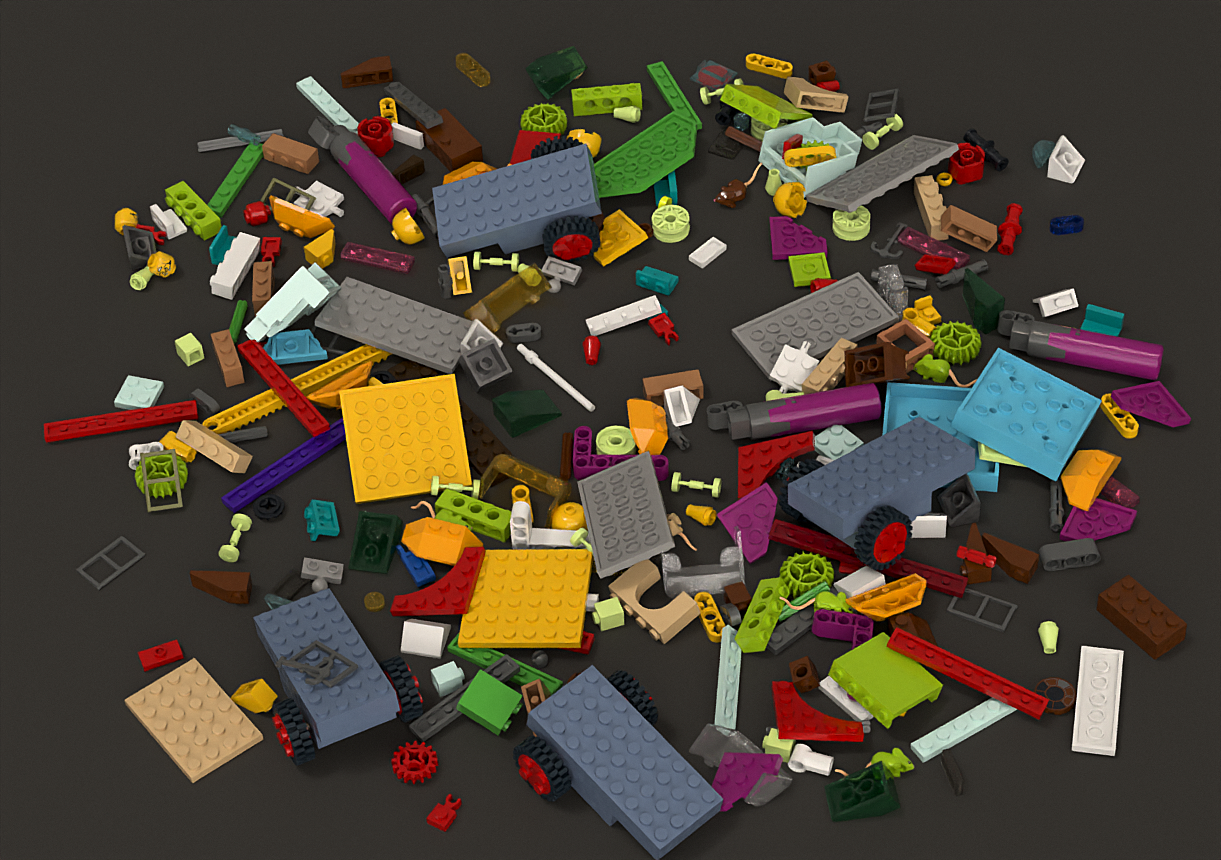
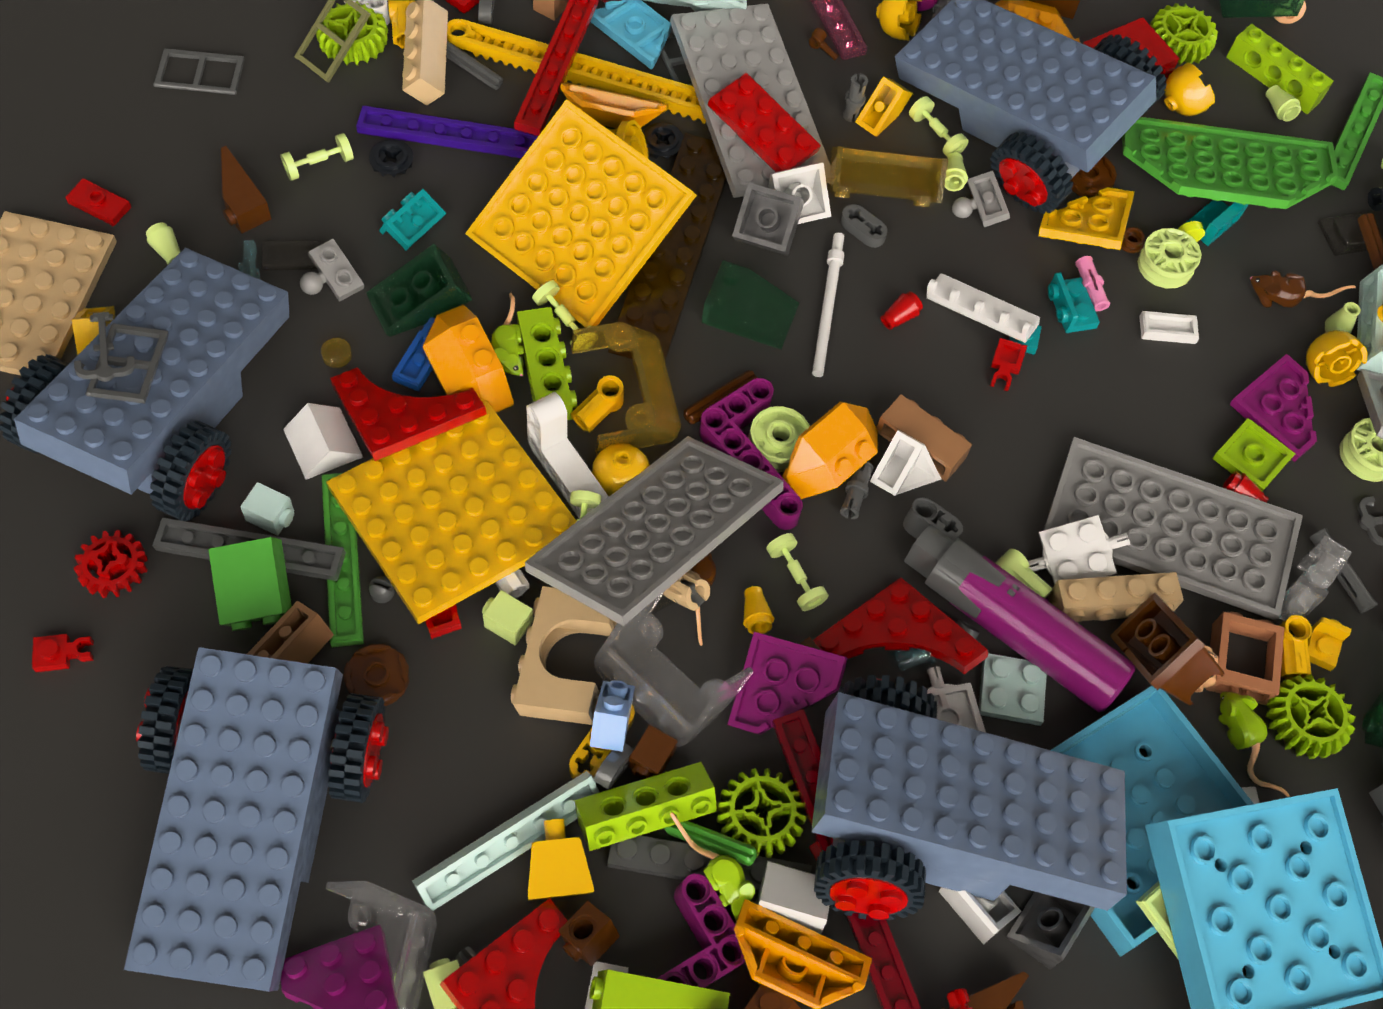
camera: 40 degrees right, 15 degrees up
(225, 637) = (163, 241): none -> yellowish green cone
(384, 276) = (817, 40): none -> reddish brown hand
(425, 328) = (763, 124): none -> red plate
(643, 260) = (1092, 282): none -> bright pink pin
(708, 597) = (612, 715): none -> light blue slope
(760, 667) = (558, 865): none -> yellow torso

